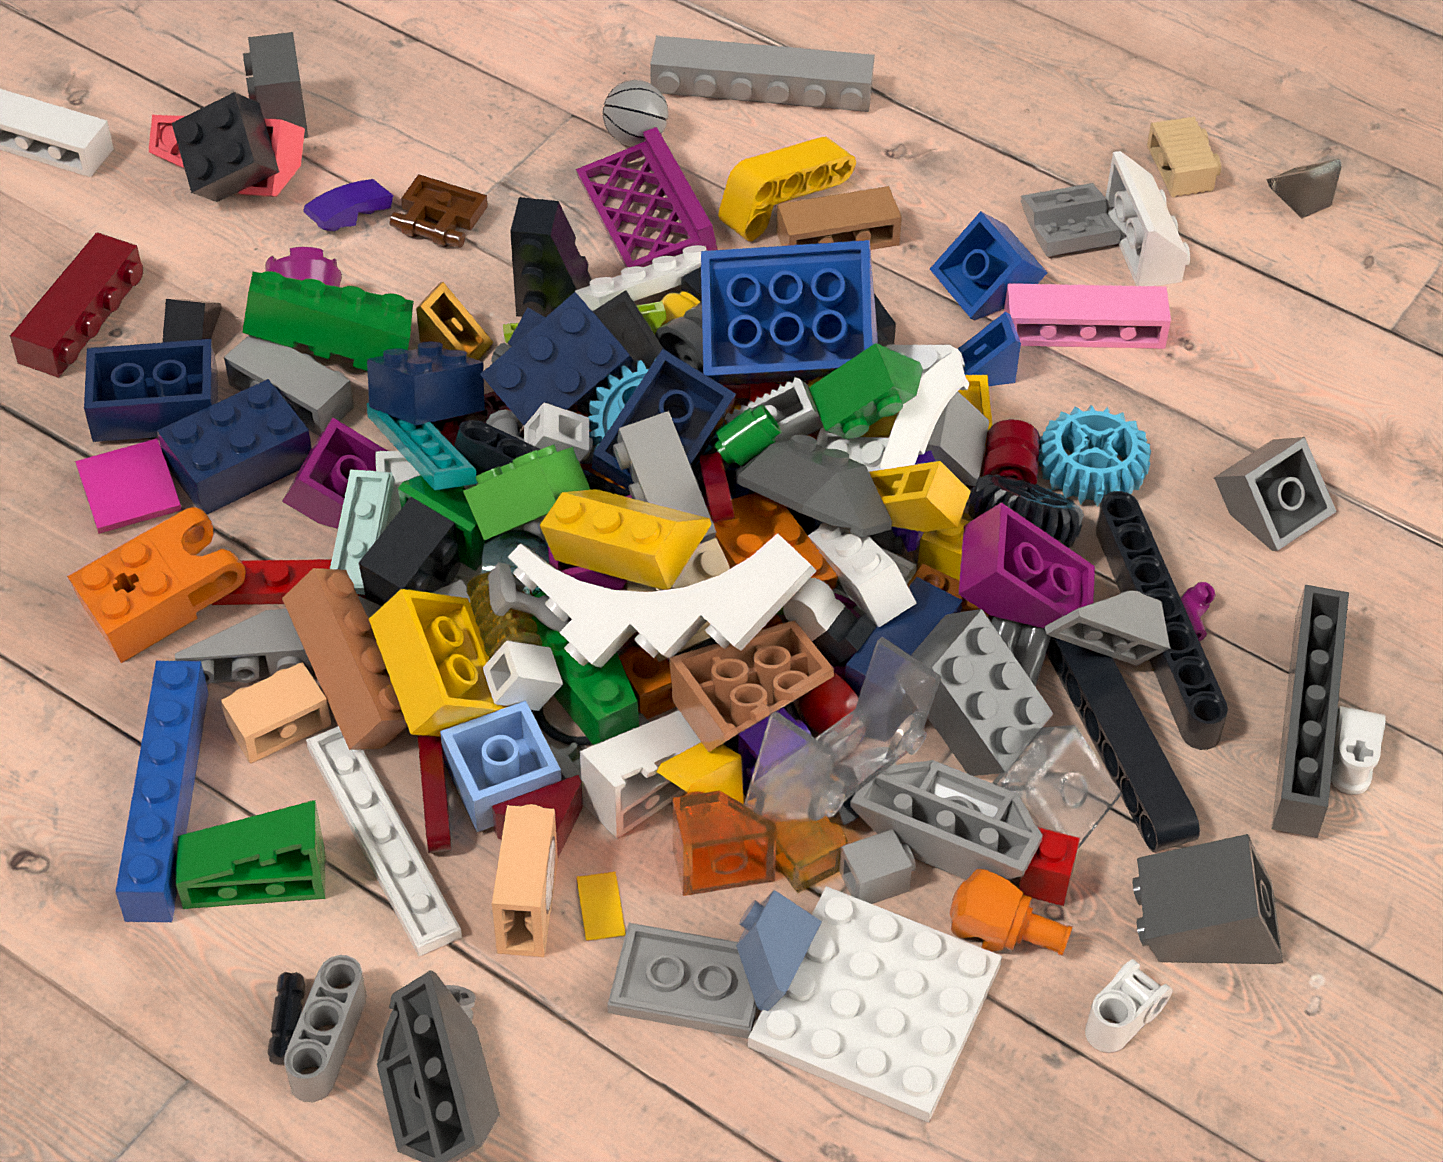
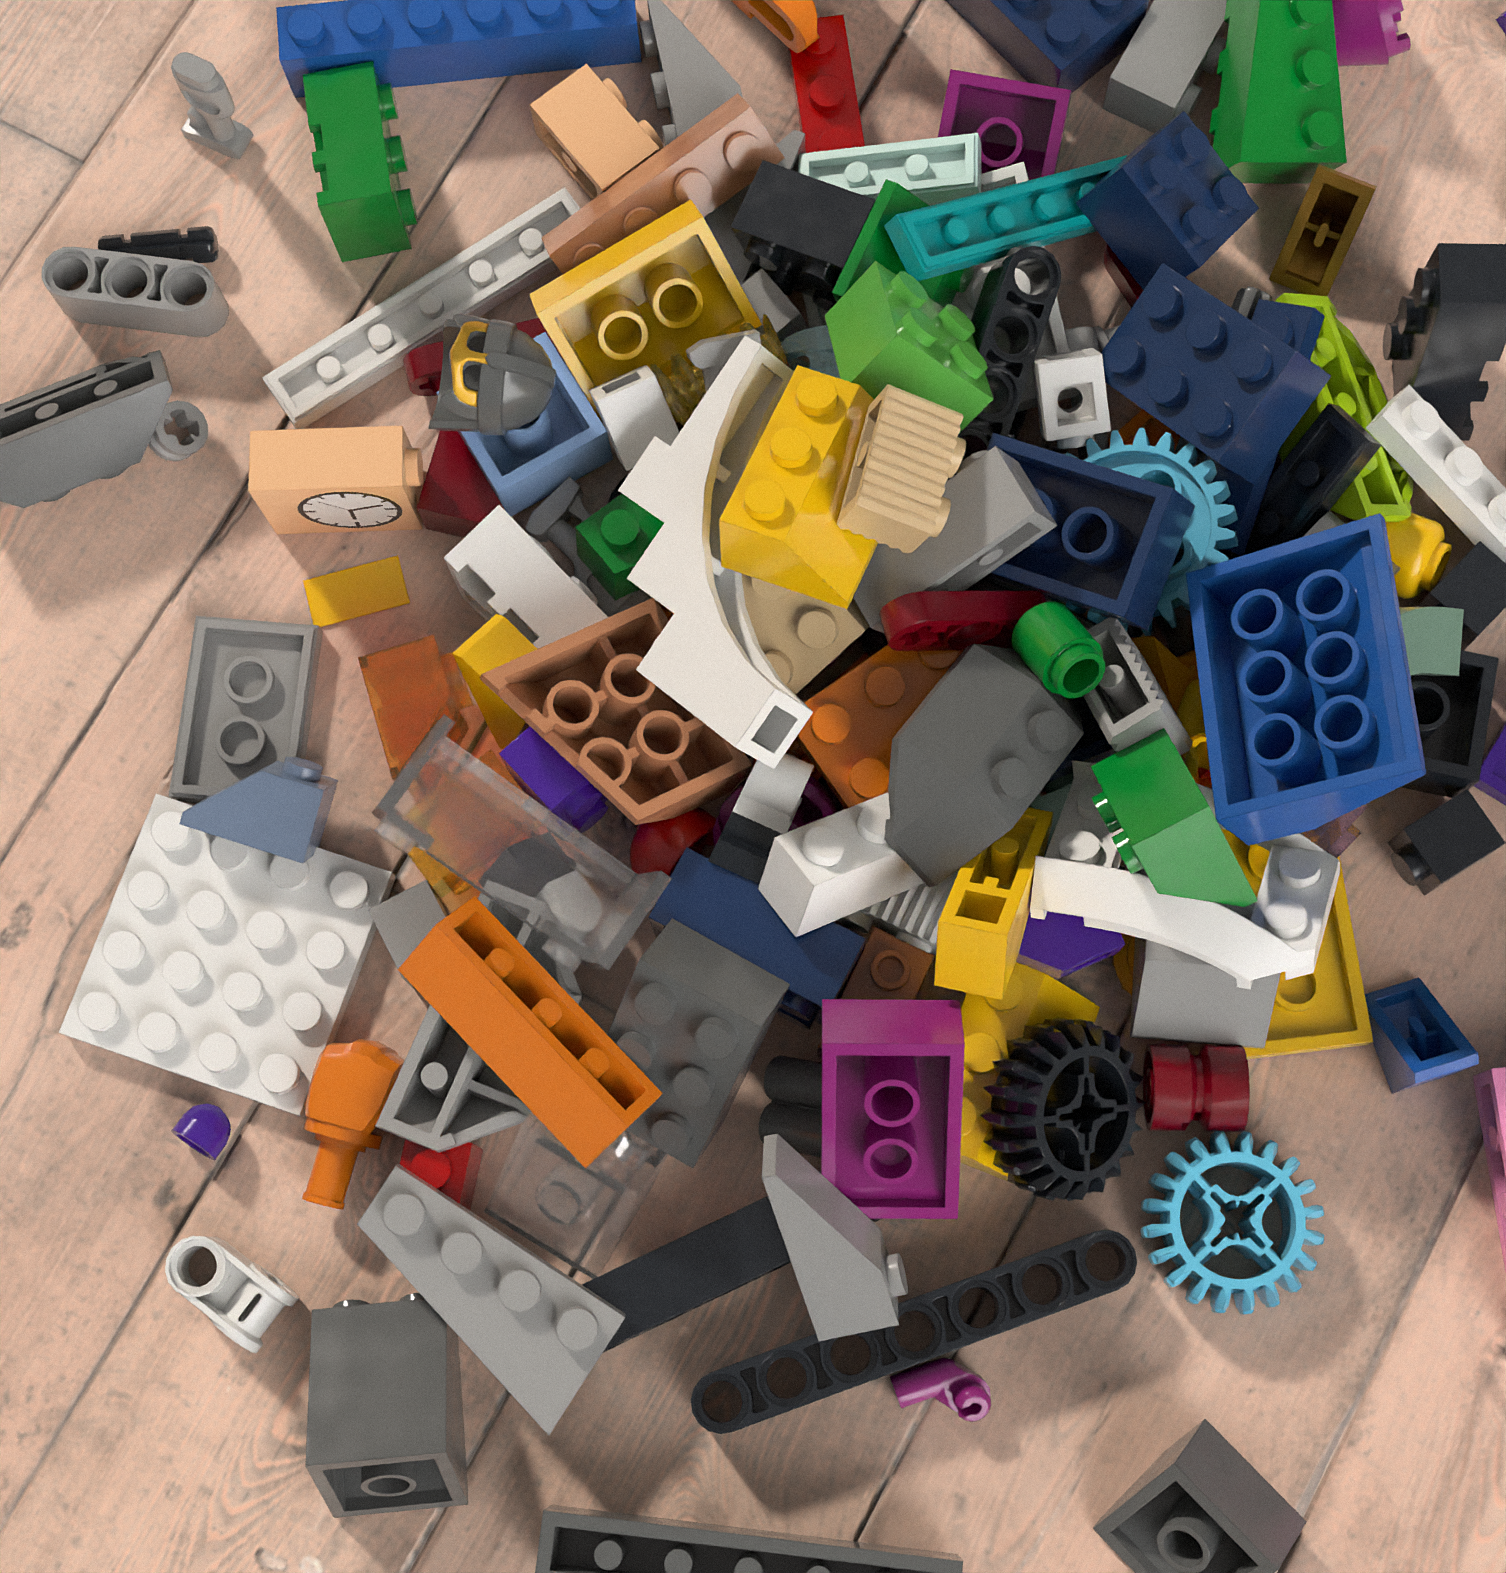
camera: 90 degrees right, 25 degrees up
(185, 934) = (210, 107): none -> light grey piece
(482, 748) = (490, 377): none -> dark grey helmet
(629, 471) = (902, 470): none -> tan brick
(967, 759) = (529, 1030): none -> orange brick
(1010, 1020) = (204, 1129): none -> dark purple hinge
(1137, 817) = (502, 1300): none -> light grey wing

